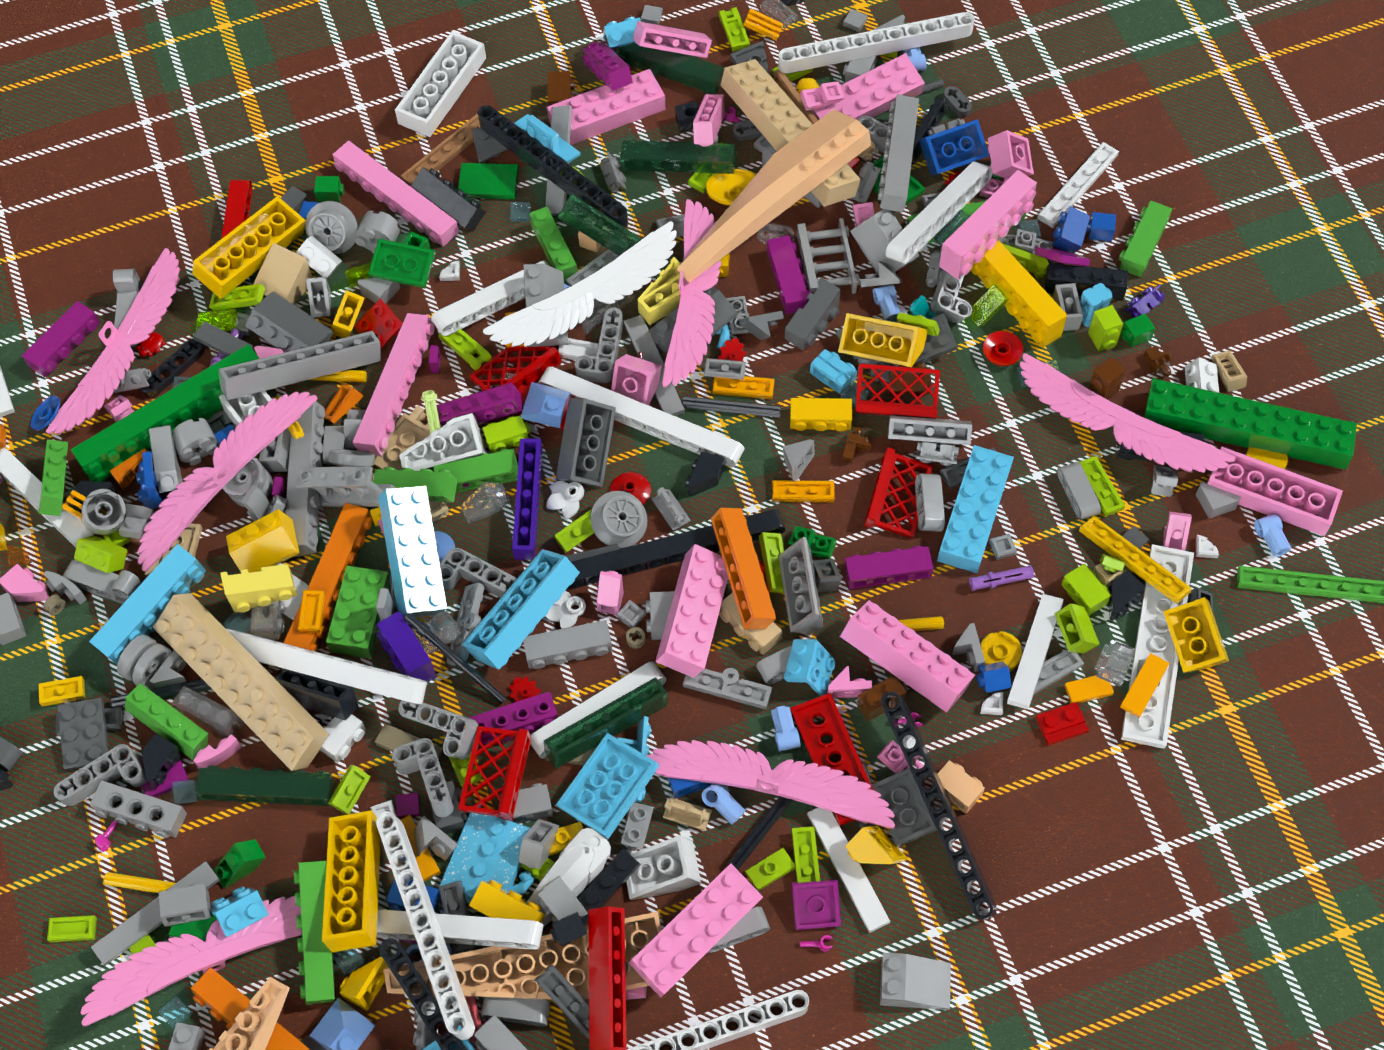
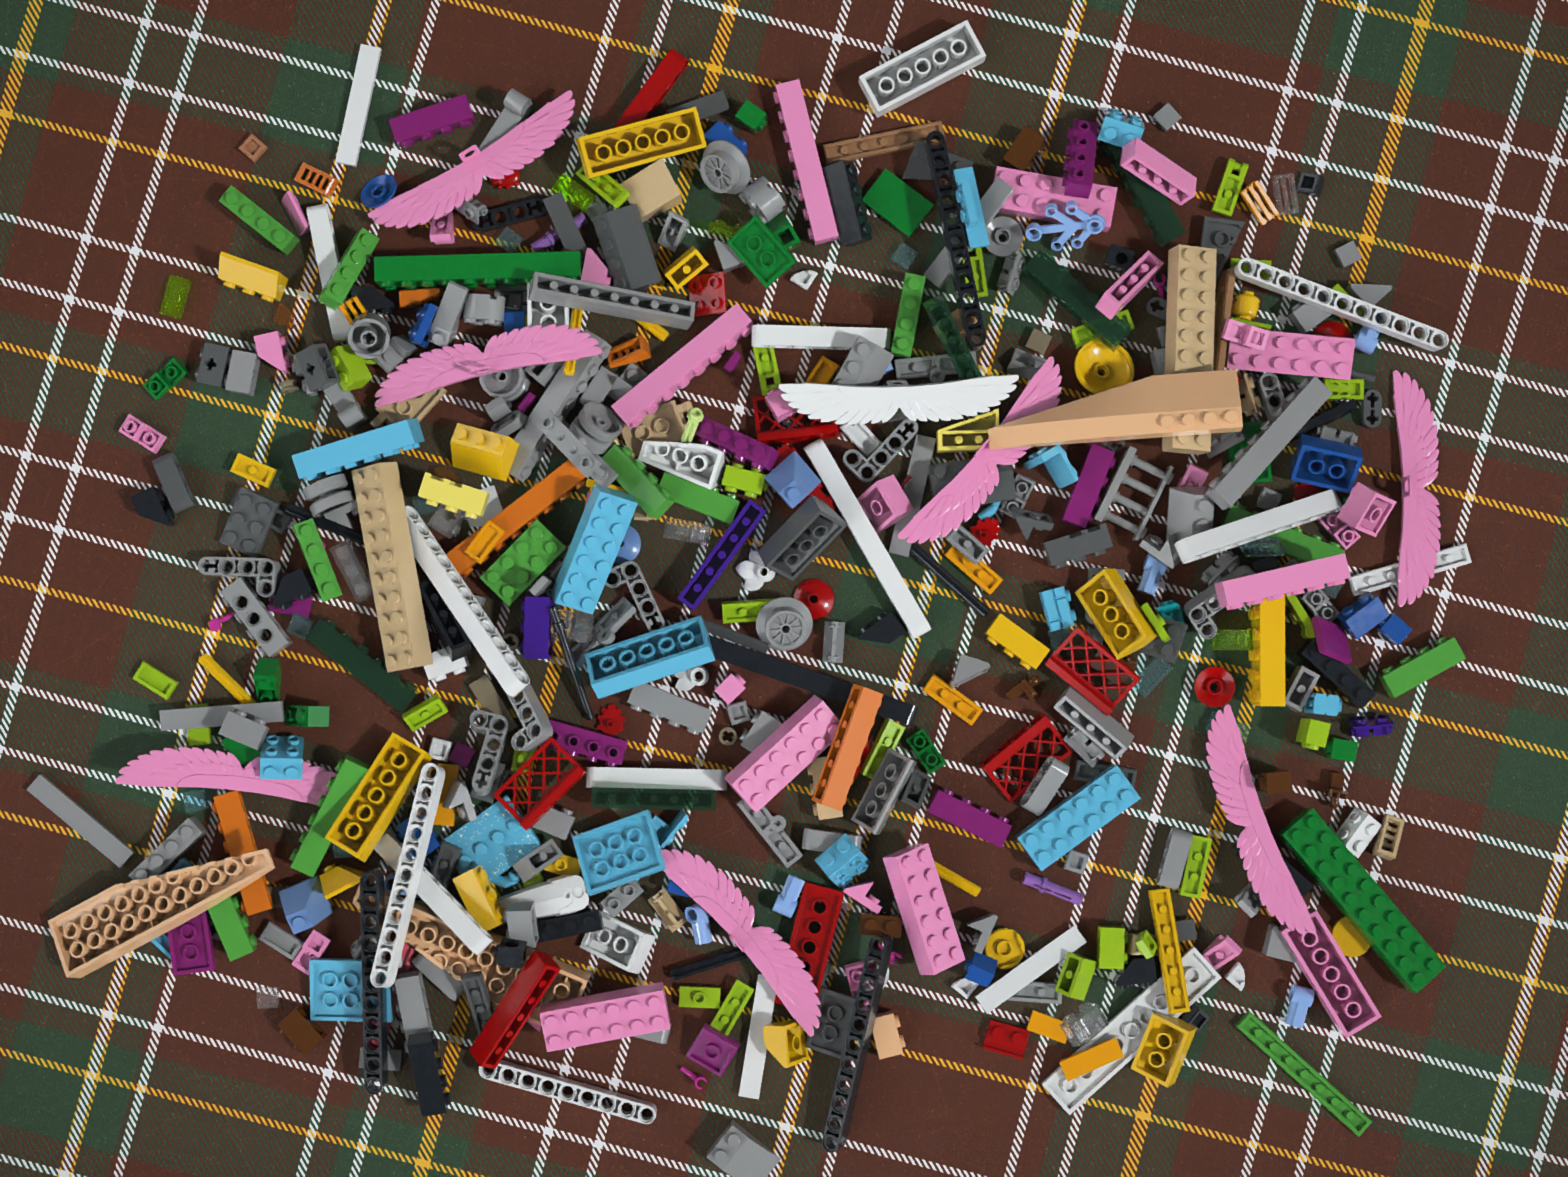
camera: 30 degrees right, 25 degrees up
(71, 564) = (317, 367): none -> dark grey brick
(180, 853) = (267, 679): none -> green slope
(210, 756) = (334, 609): bright pink slope -> none
(319, 257) = (695, 192): white brick -> none
(499, 358) = (779, 406): none -> bright pink slope
(592, 152) = (1010, 229): none -> light grey dish
(632, 112) = (1067, 226): none -> light blue plant
(670, 205) = (1038, 341): none -> dark tan tile
(750, 271) = (1056, 463): none -> medium azure bracket
(928, 98) = (1345, 389): none -> lime plate
(948, 374) = (1152, 676): none -> clear light blue tile
(1053, 144) = (1419, 507): none -> bright pink piece

